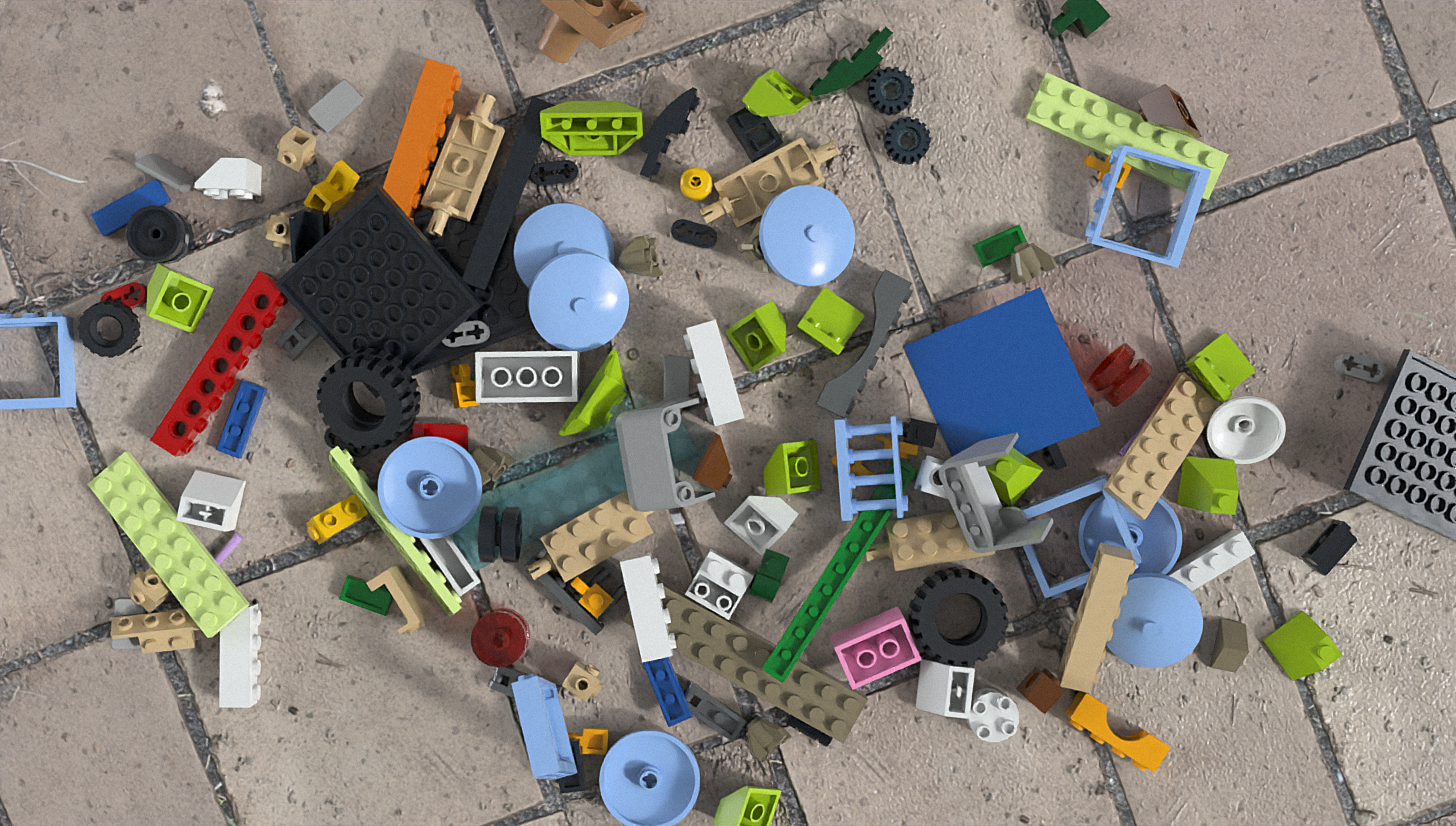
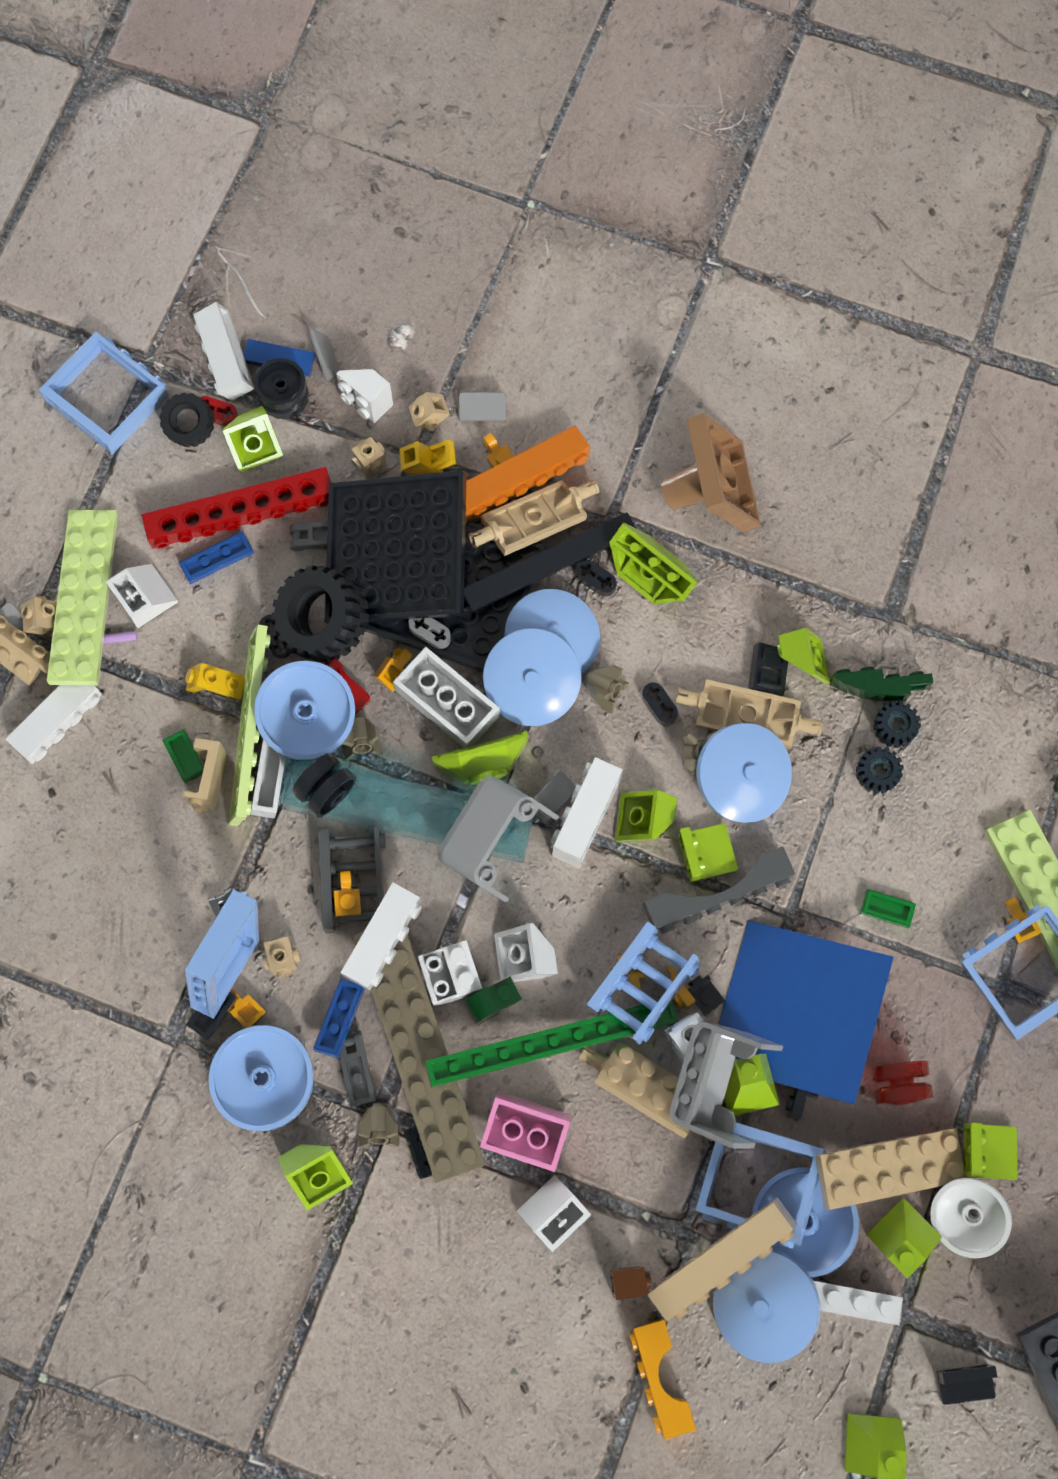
camera: 40 degrees right, 15 degrees down
(81, 244) = (223, 351): none -> white brick
(306, 230) = (385, 464): black panel -> none
(387, 136) = (497, 454): none -> light orange plate
(490, 648) = (250, 854): clear red wheel -> none
(592, 538) = (389, 854): tan plate -> none
(670, 123) = (711, 611): black slope -> none
(696, 193) = (686, 670): yellow head -> none
(714, 466) = (526, 879): reddish brown slope -> none
(793, 469) = (583, 936): lime slope -> none
(982, 640) = (649, 1159): black tyre -> none
(993, 715) = (572, 1270): white brick -> none
(1029, 262) = (900, 936): dark tan brick -> none
(1229, 646) = (814, 1392): dark tan slope -> none

